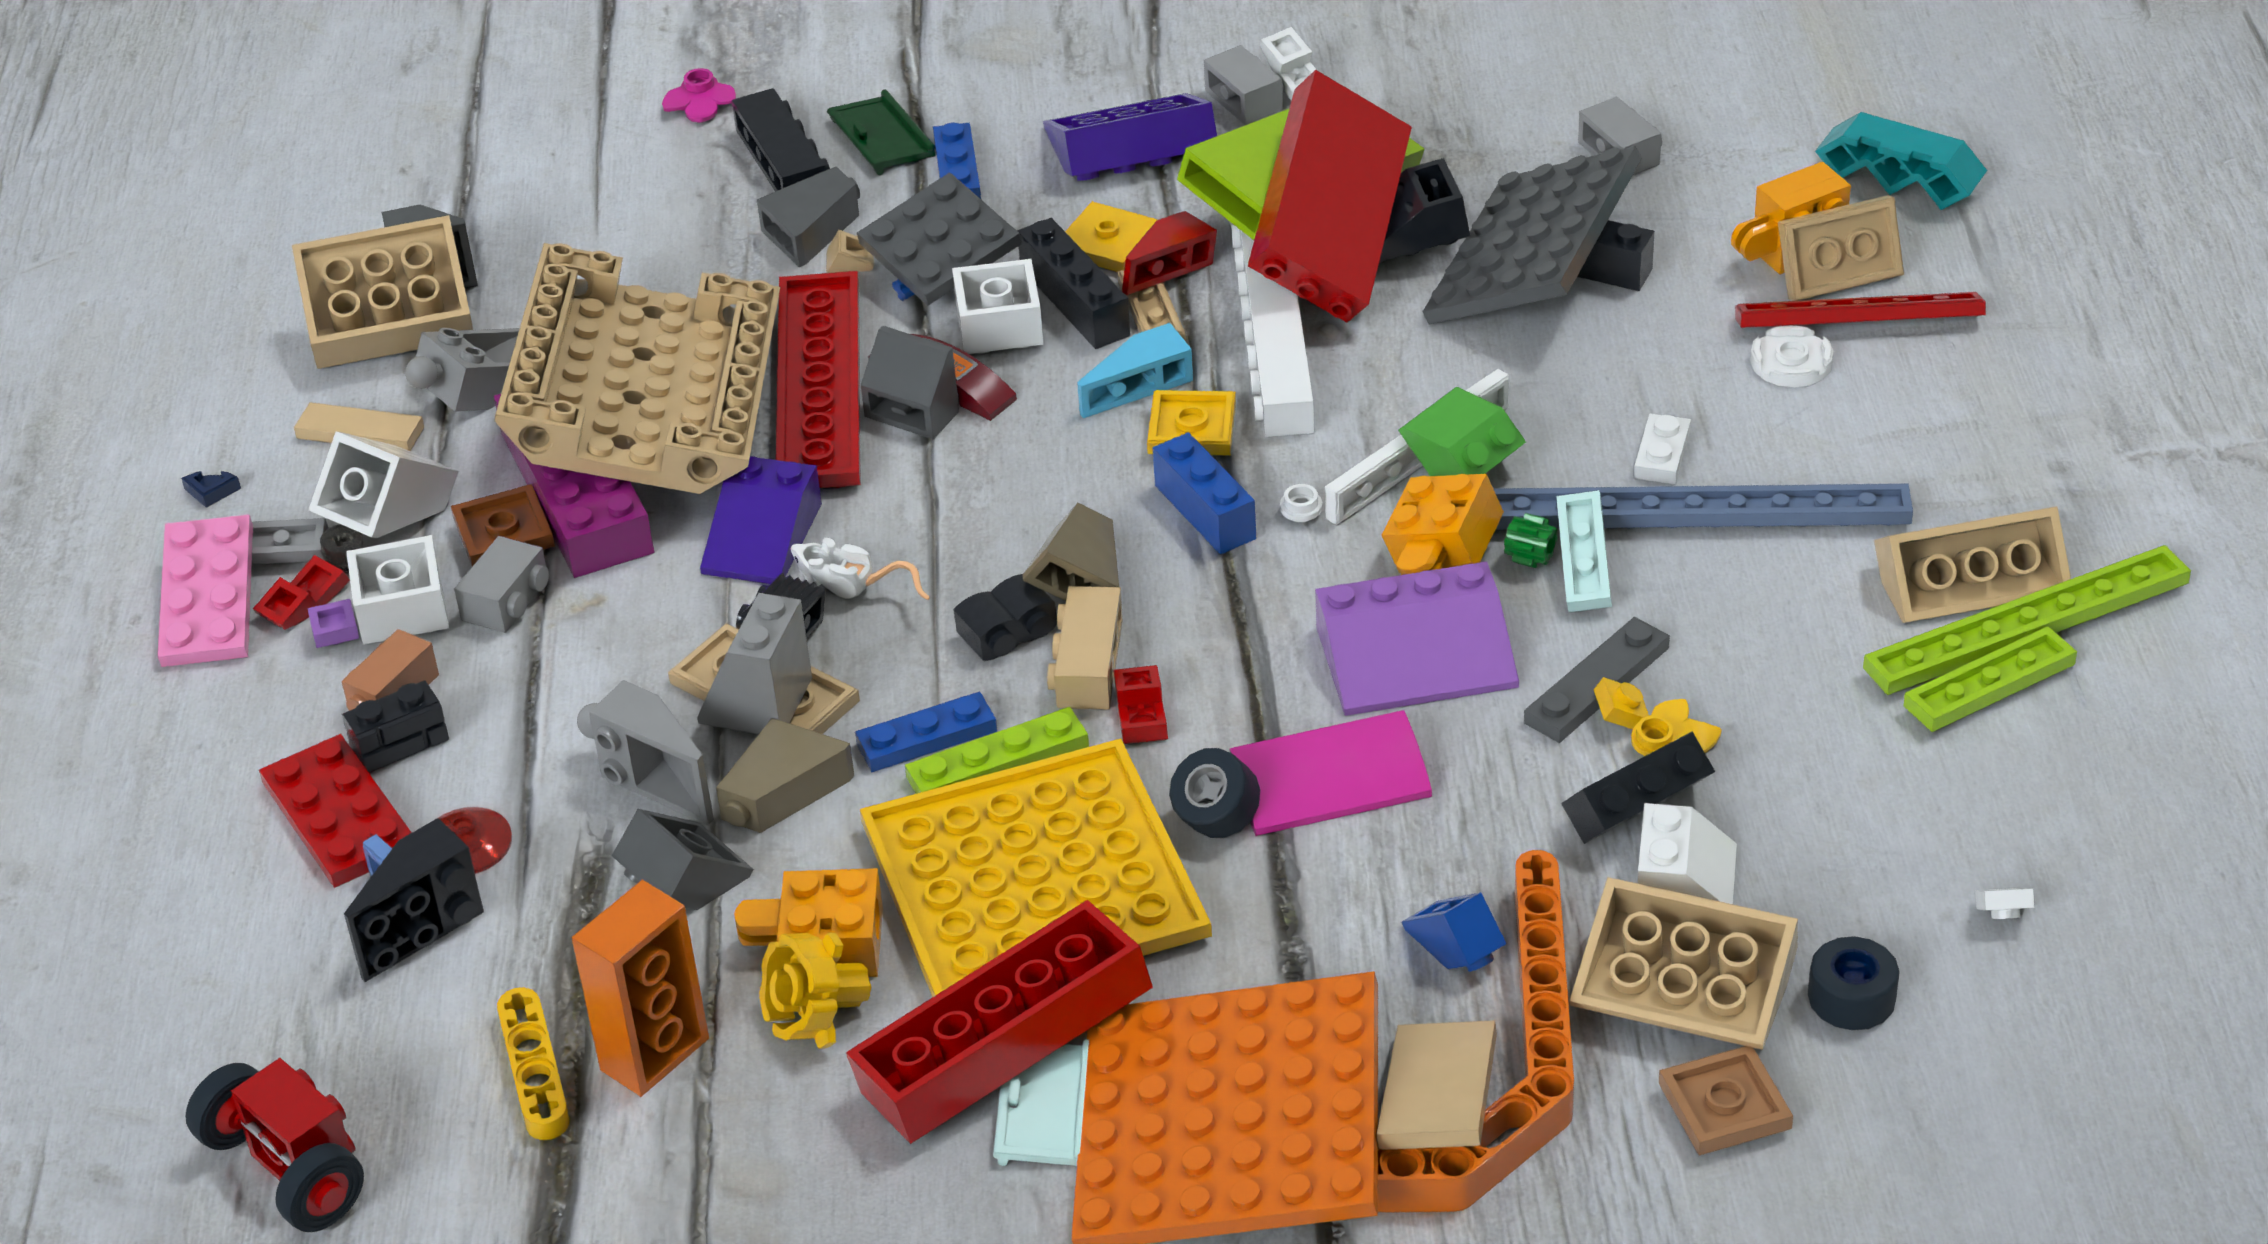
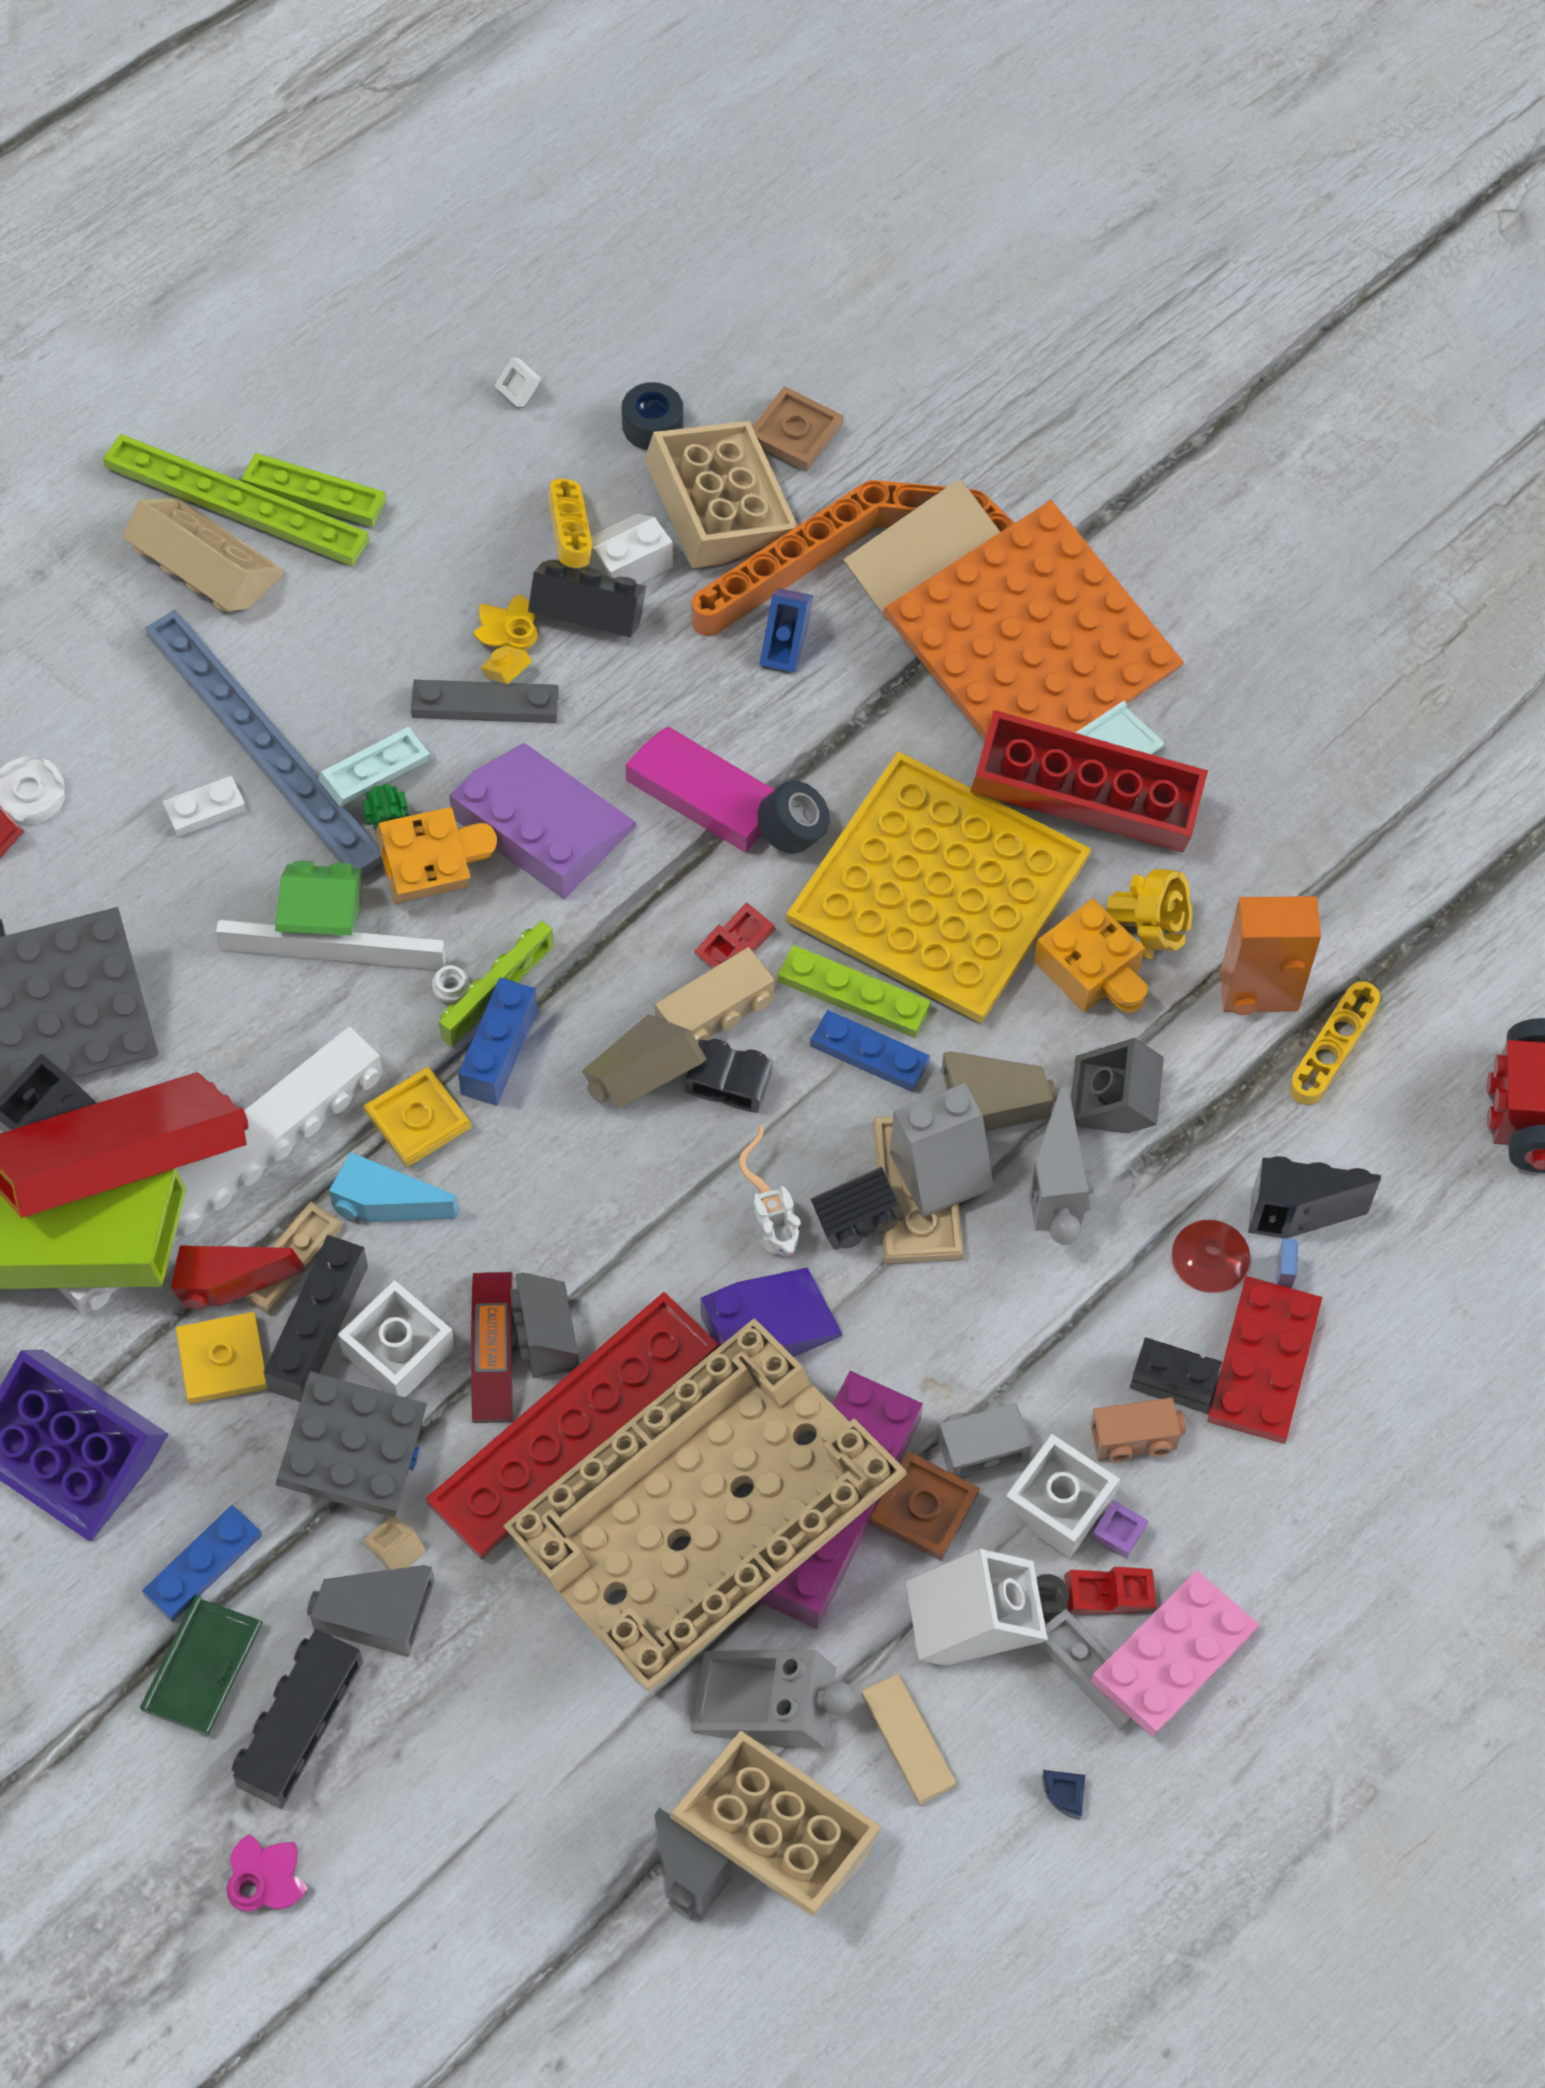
camera: 135 degrees left, 20 degrees up
(1270, 534) = (513, 966): none -> lime plate
(1744, 824) = (569, 523): none -> yellow beam

